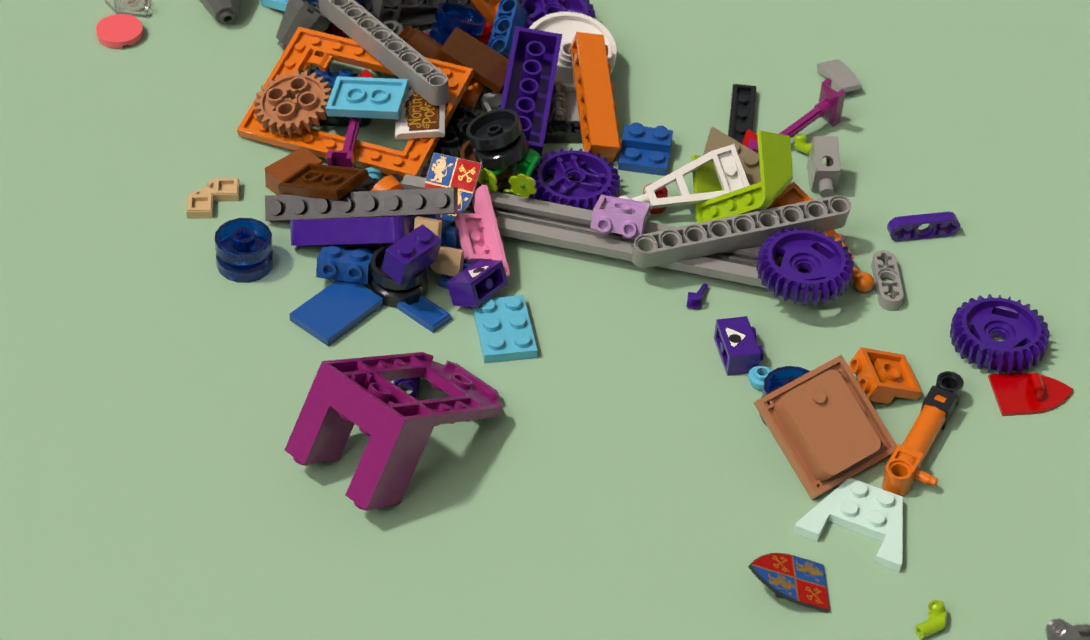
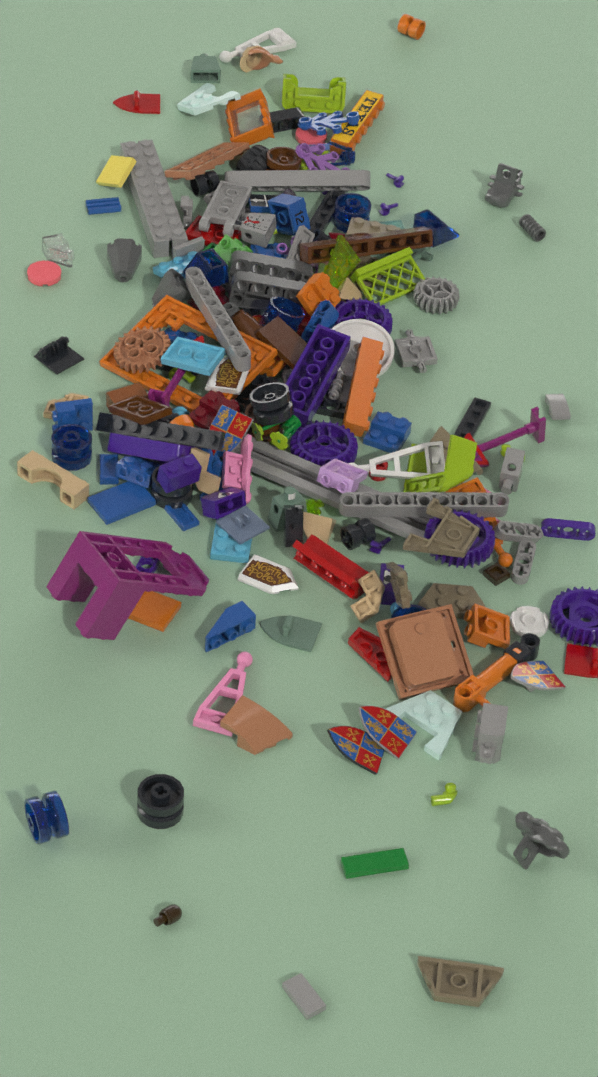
camera: 15 degrees right, 0 degrees up
(179, 133) = (58, 355): none -> black hinge
(206, 288) = (37, 468): none -> tan arch
(231, 203) = (73, 412): none -> blue plate
(302, 269) = (107, 469): none -> blue tile
(342, 124) = (188, 376): none -> lime arm
(414, 161) = (209, 407): none -> dark red plate
(446, 451) = (155, 610): none -> orange tile
(513, 307) = (242, 525): none -> sand blue piece
(555, 443) = (232, 623): none -> blue slope
(564, 275) = (289, 497): none -> sand green torso
(571, 369) = (267, 576): none -> tile
(581, 294) = (293, 524): none -> black hinge
(587, 587) = (210, 719): none -> bright pink plate
(593, 265) = (313, 506): none -> clear neon green plate
(610, 291) = (319, 526): none -> tan slope
(633, 438) = (292, 631): none -> sand green shield
(638, 41) = (415, 351): none -> light grey plate
(644, 582) = (254, 726): none -> nougat slope
(654, 337) = (330, 565): none -> red brick
(667, 287) = (356, 534): none -> black wheel
(723, 378) = (370, 604): none -> tan tile
(753, 441) = (371, 650): none -> red wing
(763, 342) = (399, 584): none -> dark tan wing
(802, 266) = (451, 538): none -> dark tan wing
(818, 346) = (460, 597): none -> dark tan wing
(819, 545) = (387, 729): none -> shield
(860, 303) = (496, 574): none -> dark brown tile
(868, 241) = (506, 531): none -> light grey beam
(929, 356) = (529, 620): none -> white tile
(958, 519) = (490, 733): none -> light grey hinge
(975, 428) = (536, 676): none -> shield

